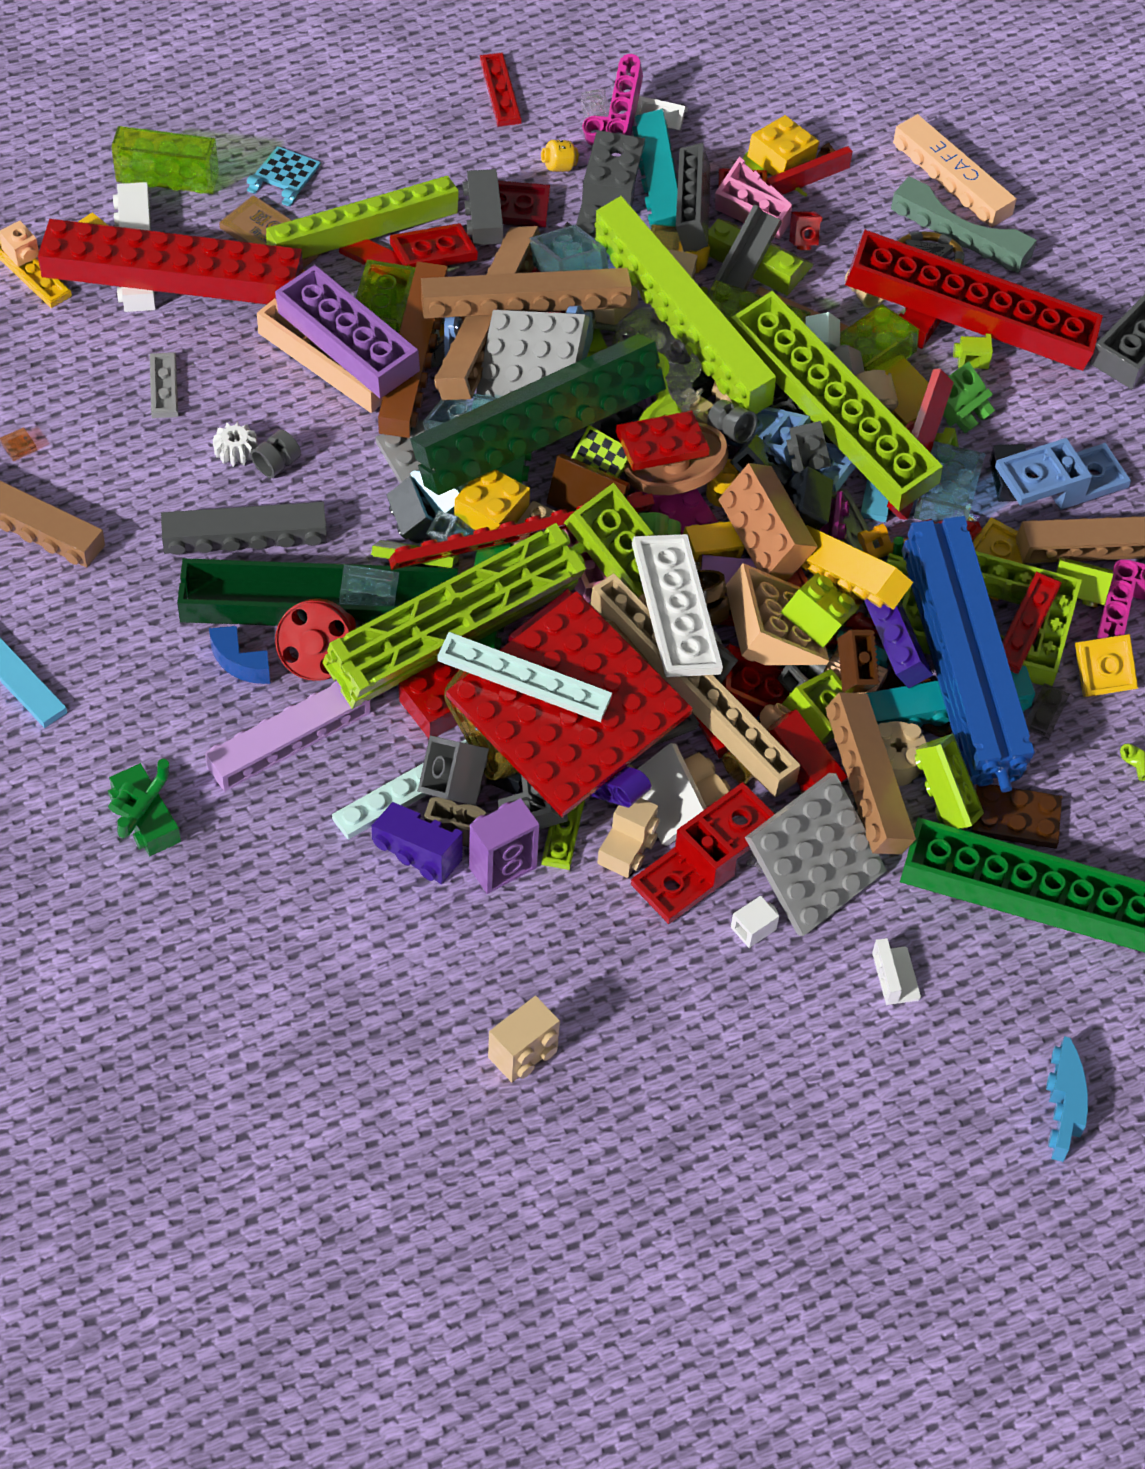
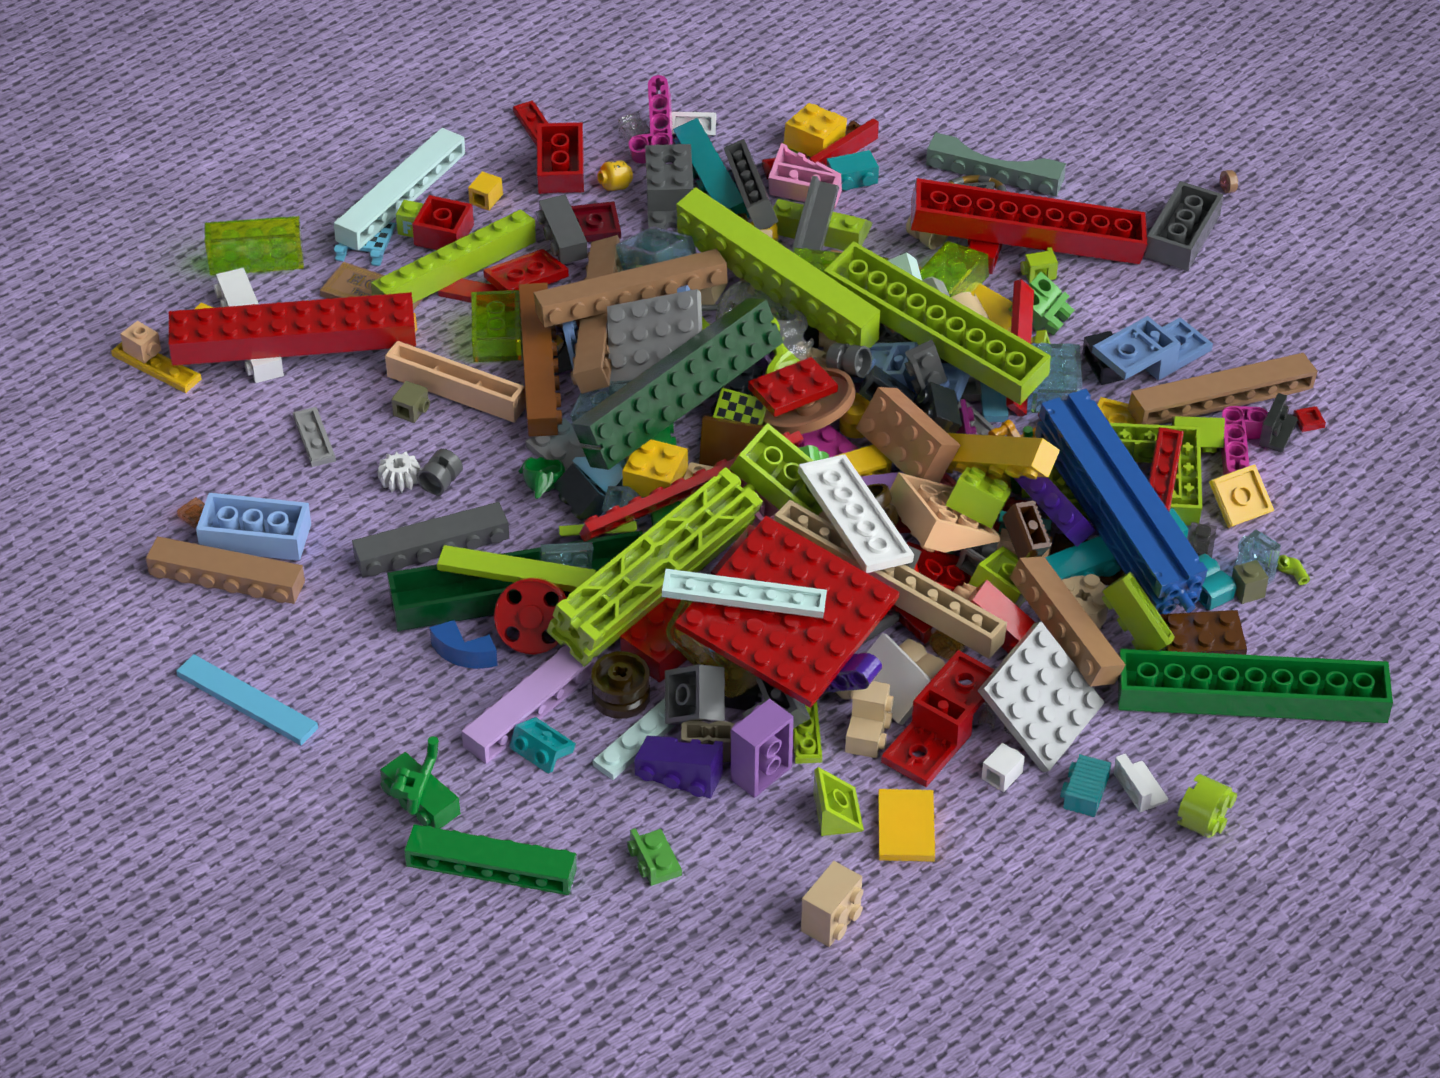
camera: 10 degrees left, 10 degrees down
(68, 474) = (255, 526): none -> light blue brick
(193, 902) = (491, 859): none -> green brick
(271, 367) = (410, 401): none -> olive brick
(285, 782) = (540, 743): none -> teal bracket
(309, 583) = (510, 568): none -> lime tile
(333, 125) = (404, 183): none -> light aqua brick
(335, 162) = (405, 217): none -> lime brick
(347, 331) = (478, 351): medium lavender brick -> none
(363, 937) = (654, 856): none -> bright green bracket
(364, 173) = (442, 222): none -> red brick
(378, 479) = (541, 474): none -> green piece
(385, 736) = (620, 685): none -> dark brown wheel
(421, 145) = (485, 190): none -> yellow brick
(508, 124) = (560, 157): none -> red brick
(568, 924) = (836, 804): none -> lime slope
(634, 963) = (906, 825): none -> yellow tile
(799, 224) = (852, 189): red brick -> none
(812, 197) = (855, 169): none -> teal brick
(837, 962) = (1086, 785): none -> teal brick
(855, 481) = (972, 390): none -> dark grey plate
(954, 171) = (973, 121): light nougat brick -> none
(955, 1019) = (1206, 806): none -> lime brick
(1047, 763) = (1218, 585): none -> teal brick
(1070, 1095) = (1325, 847): dark azure slope -> none
(1084, 767) = (1250, 581): none -> olive brick
(1101, 740) = (1259, 548): none -> clear light blue bracket

